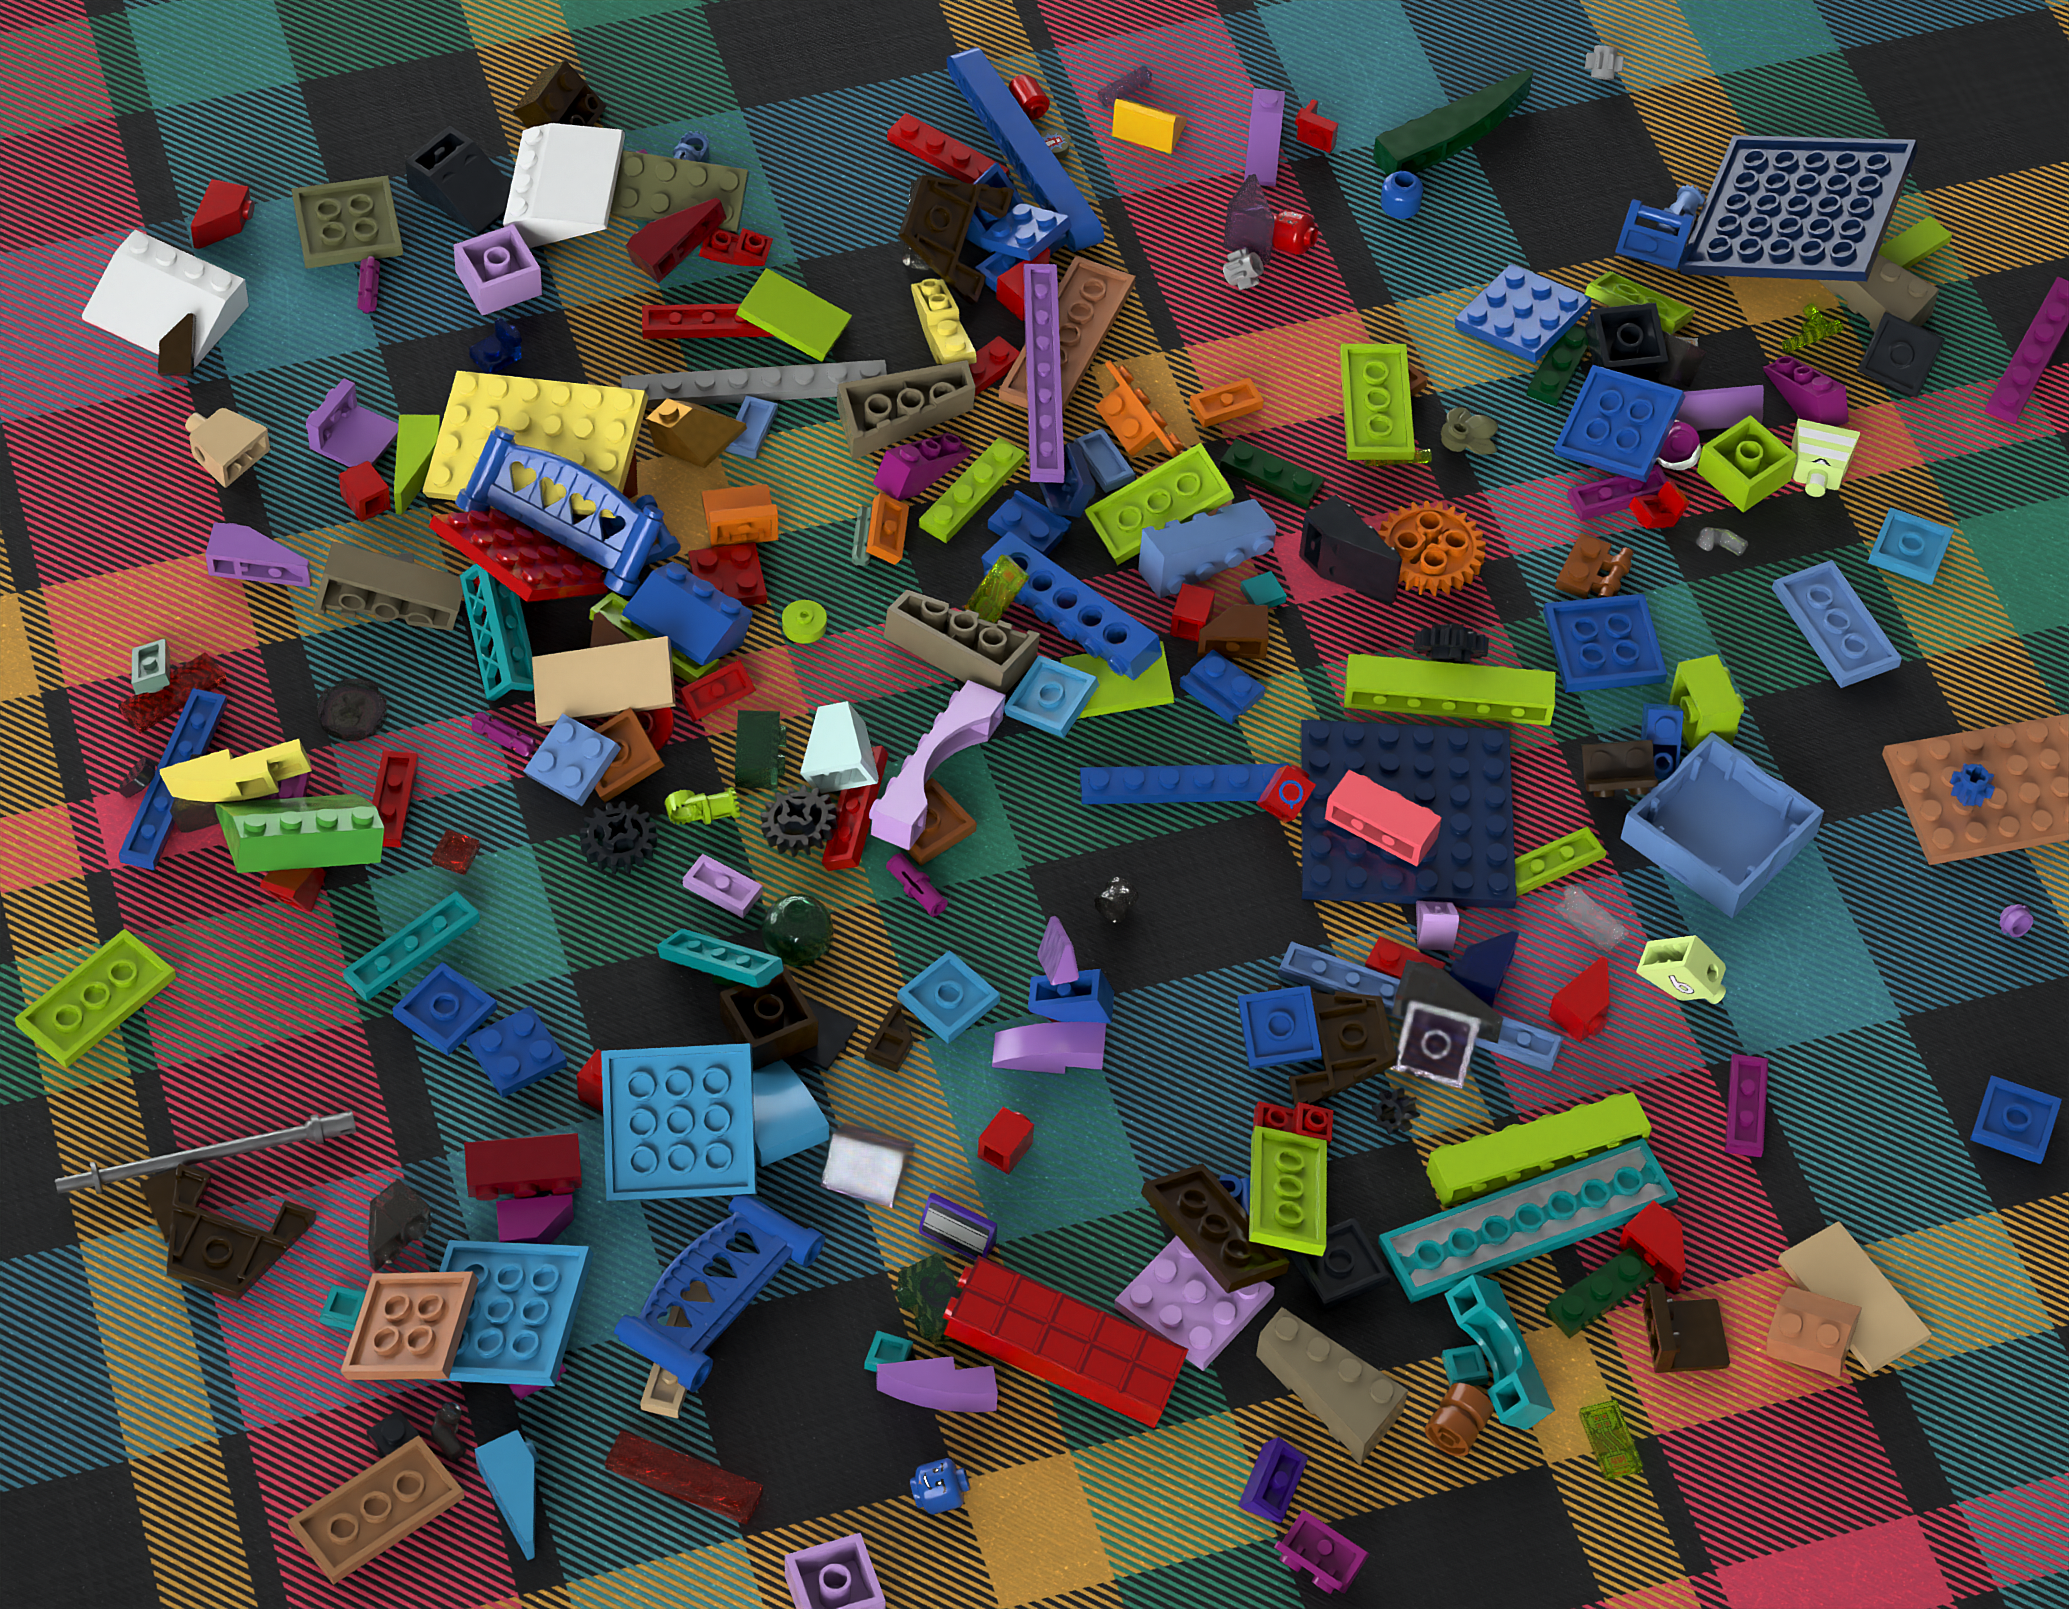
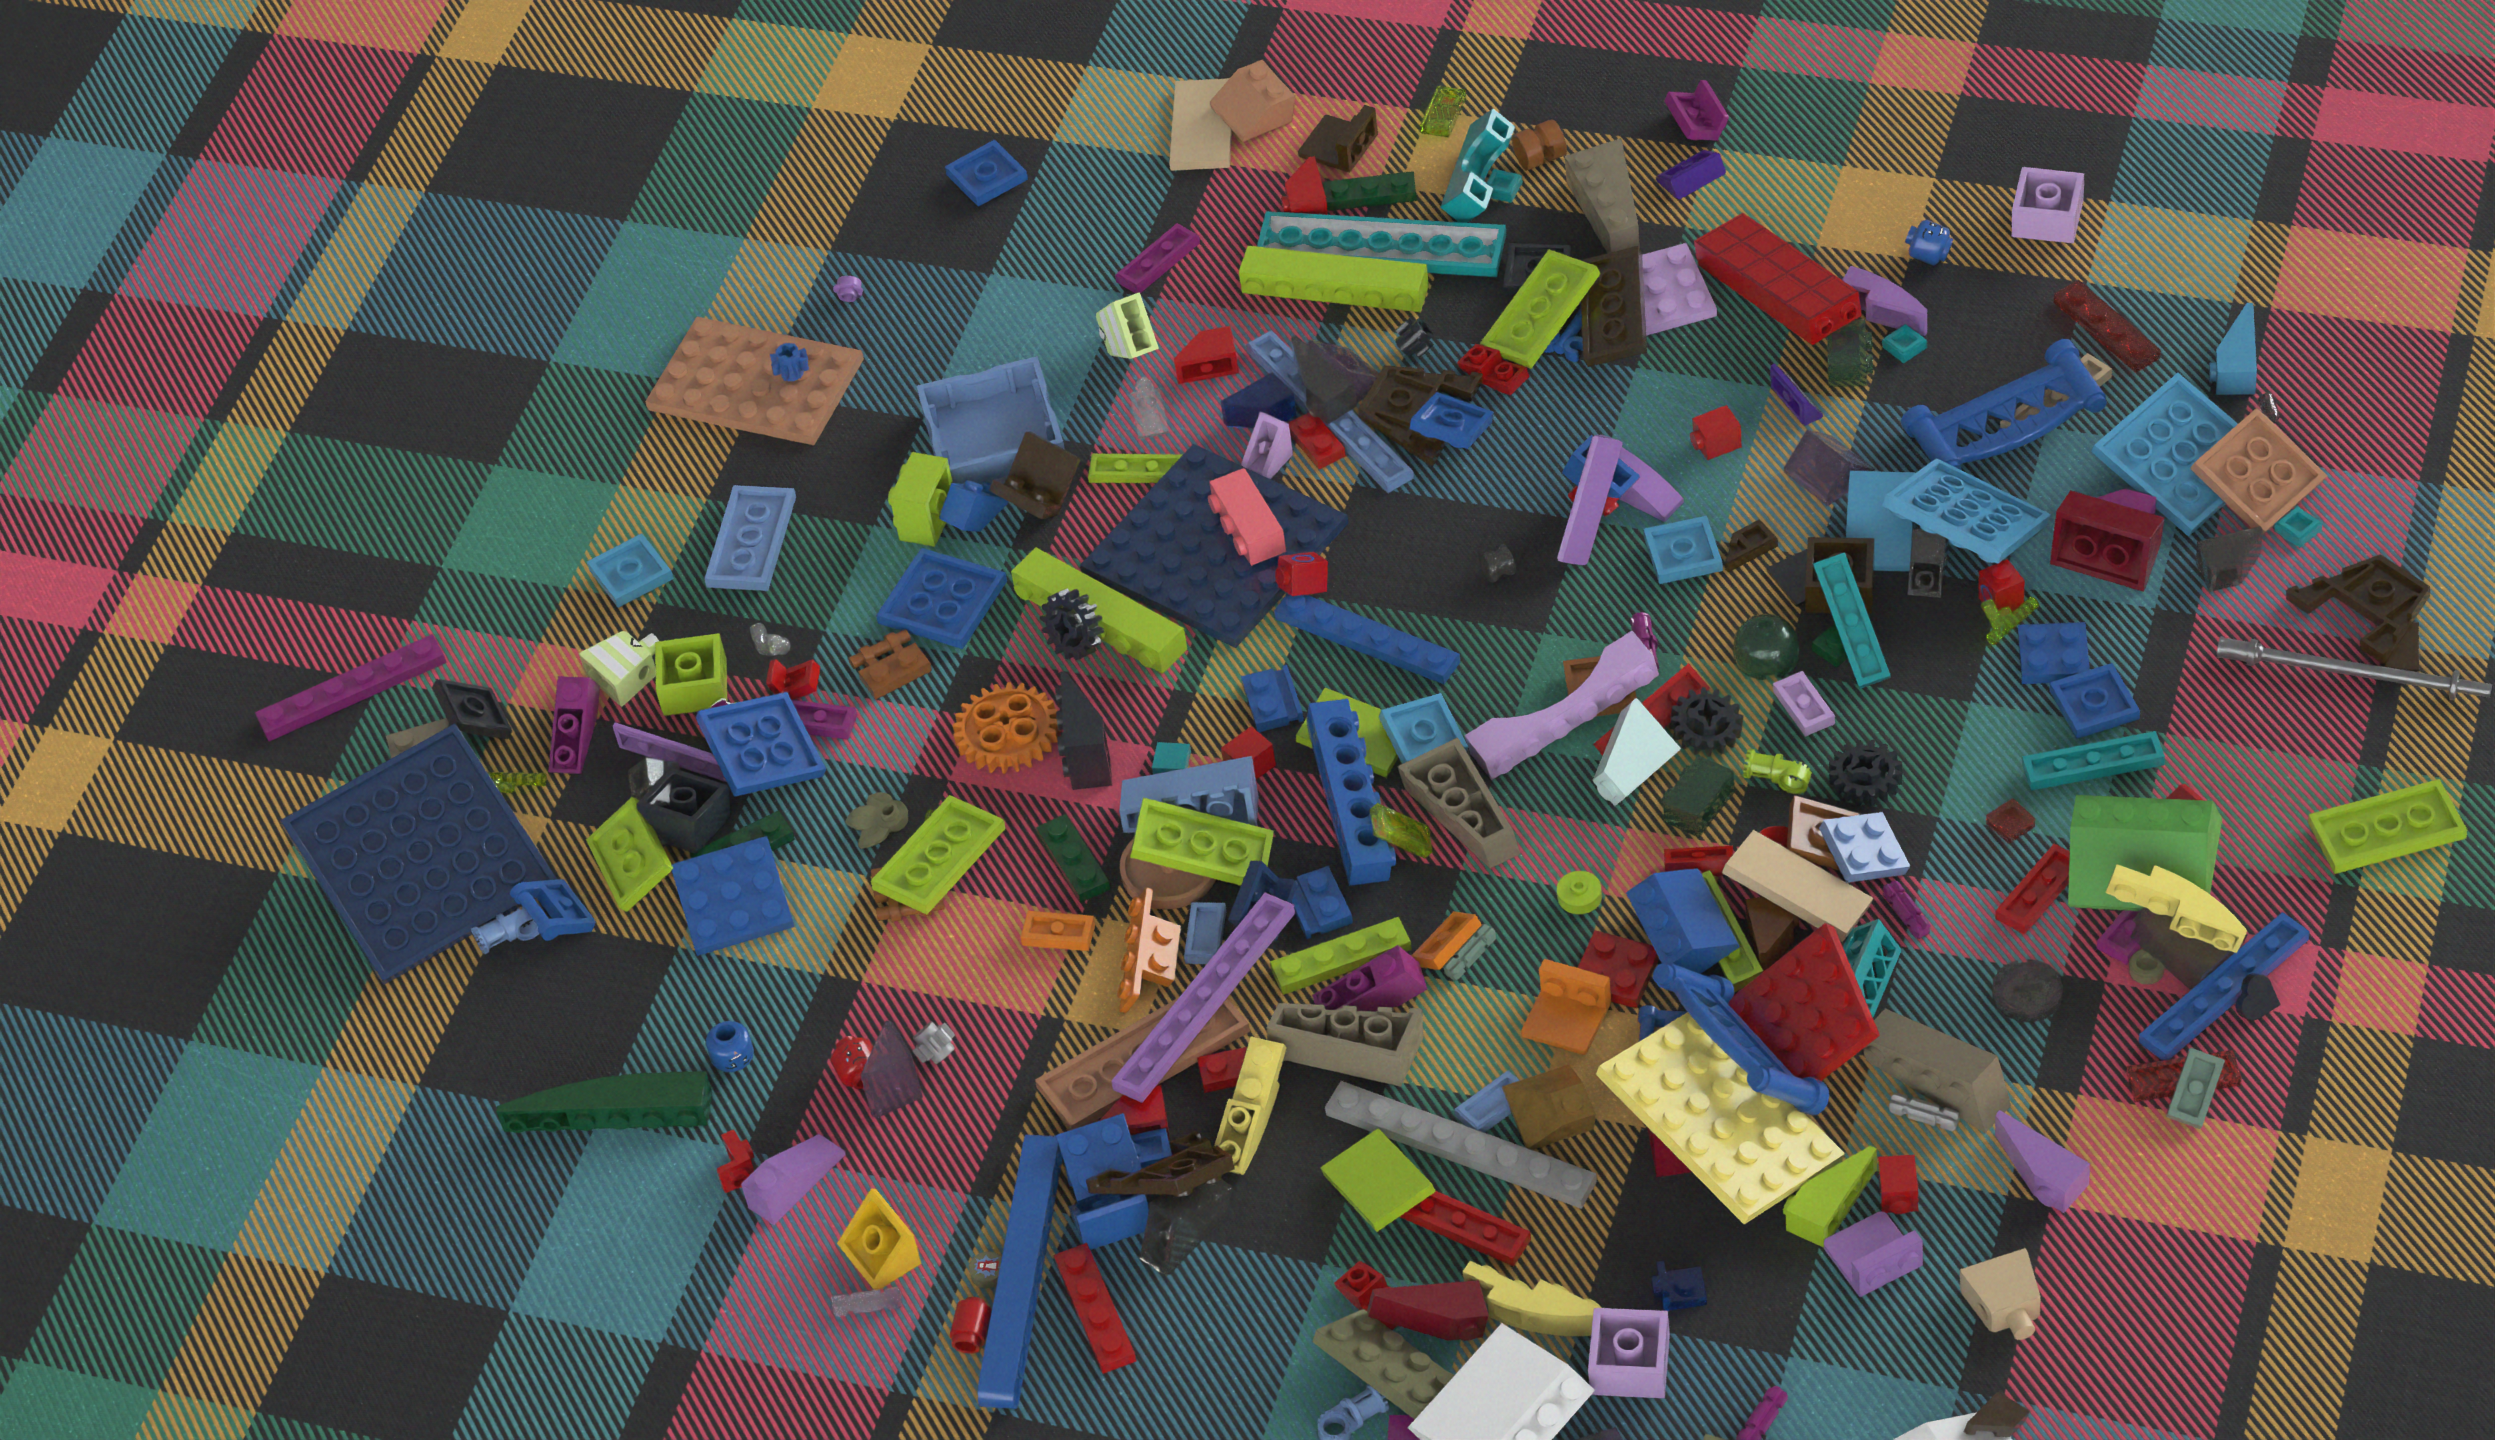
camera: 135 degrees left, 5 degrees down
(375, 1509) = (2348, 382): medium nougat plate -> none
(391, 1433) = (2308, 428): black plate -> none
(585, 1049) = (2006, 618): none -> clear neon green hose
(598, 279) = (1542, 1310): none -> light yellow slope
(1237, 633) = (1221, 720): reddish brown slope -> none
(1604, 62) = (417, 1102): light grey gear -> none

